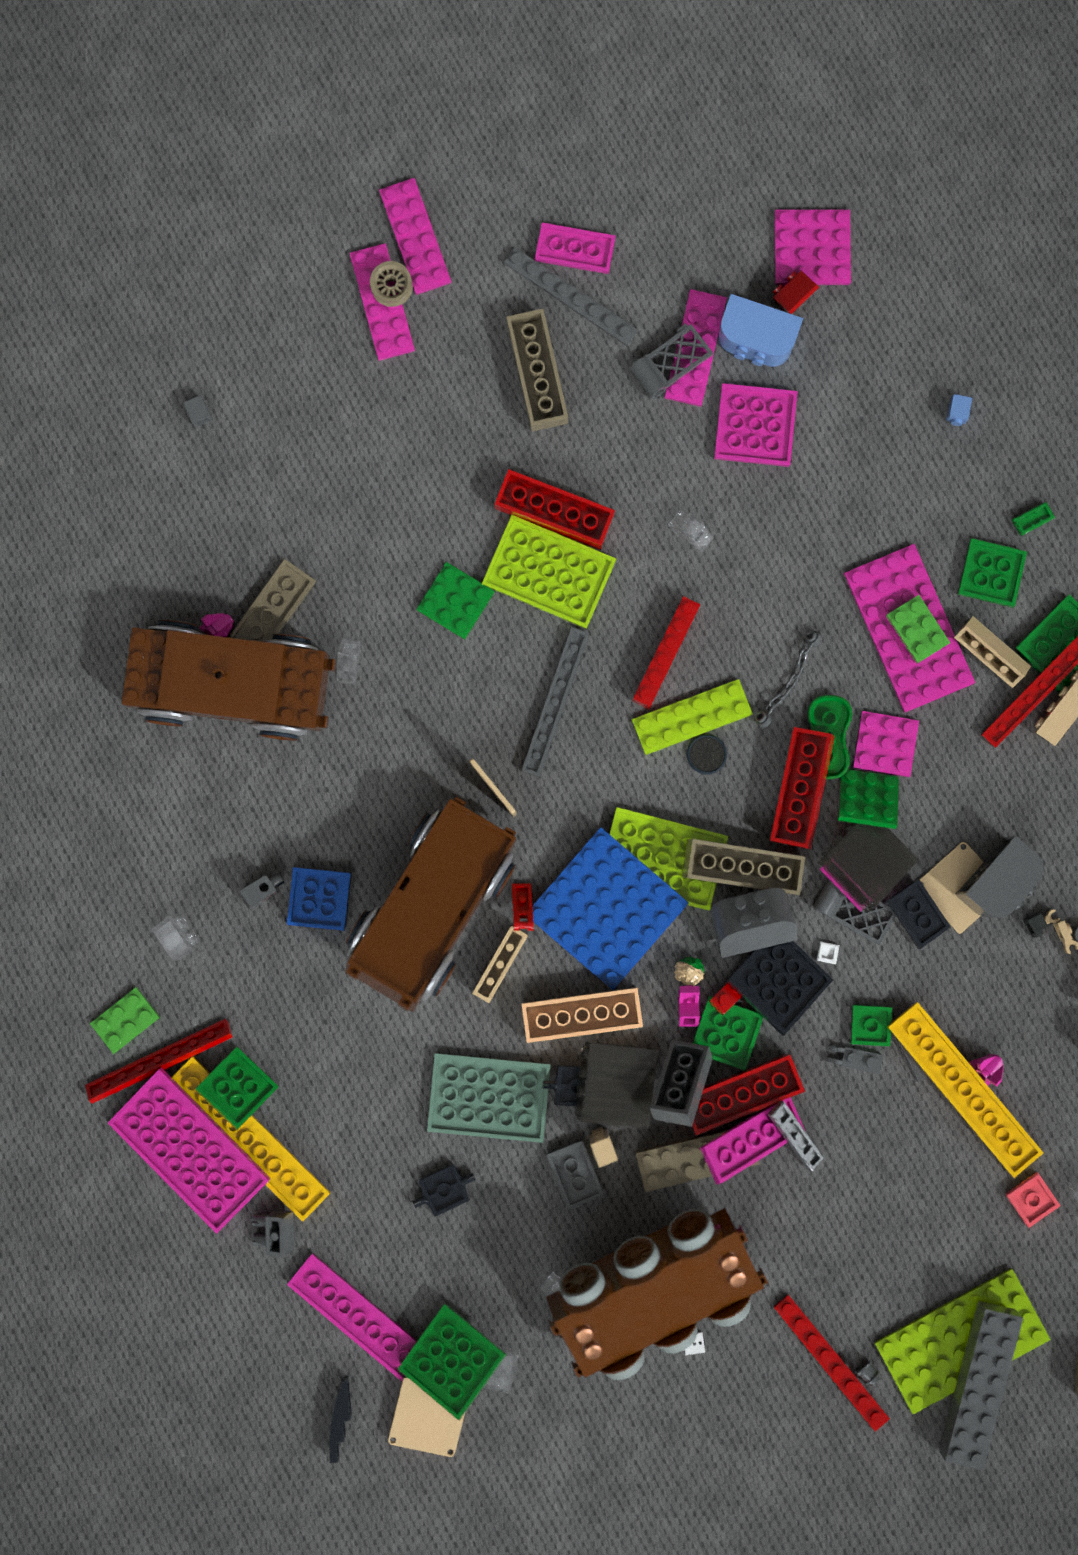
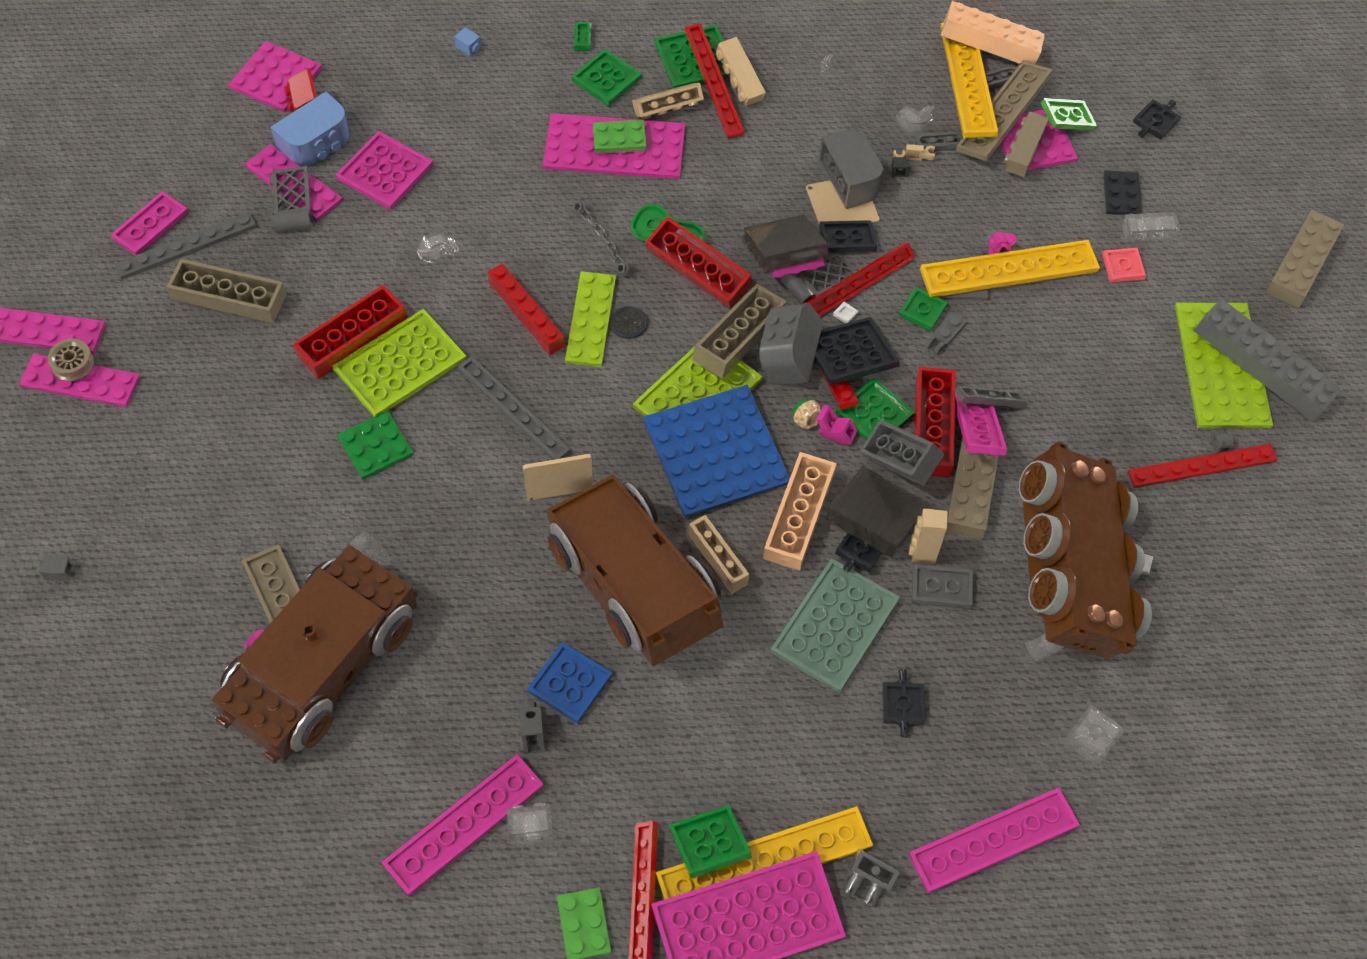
camera: 70 degrees left, 25 degrees down
(155, 881) = (462, 825): none -> dark pink plate
(341, 1413) = (1081, 902): black slope -> none
(423, 1423) = (1118, 821): tan piece -> none
(452, 1361) = (1073, 764): green plate -> none
(522, 907) = (679, 510): red plate -> none
(865, 947) = (862, 279): none -> red plate
(869, 799) = (735, 224): green plate -> none
(885, 744) = (697, 200): dark pink plate -> none

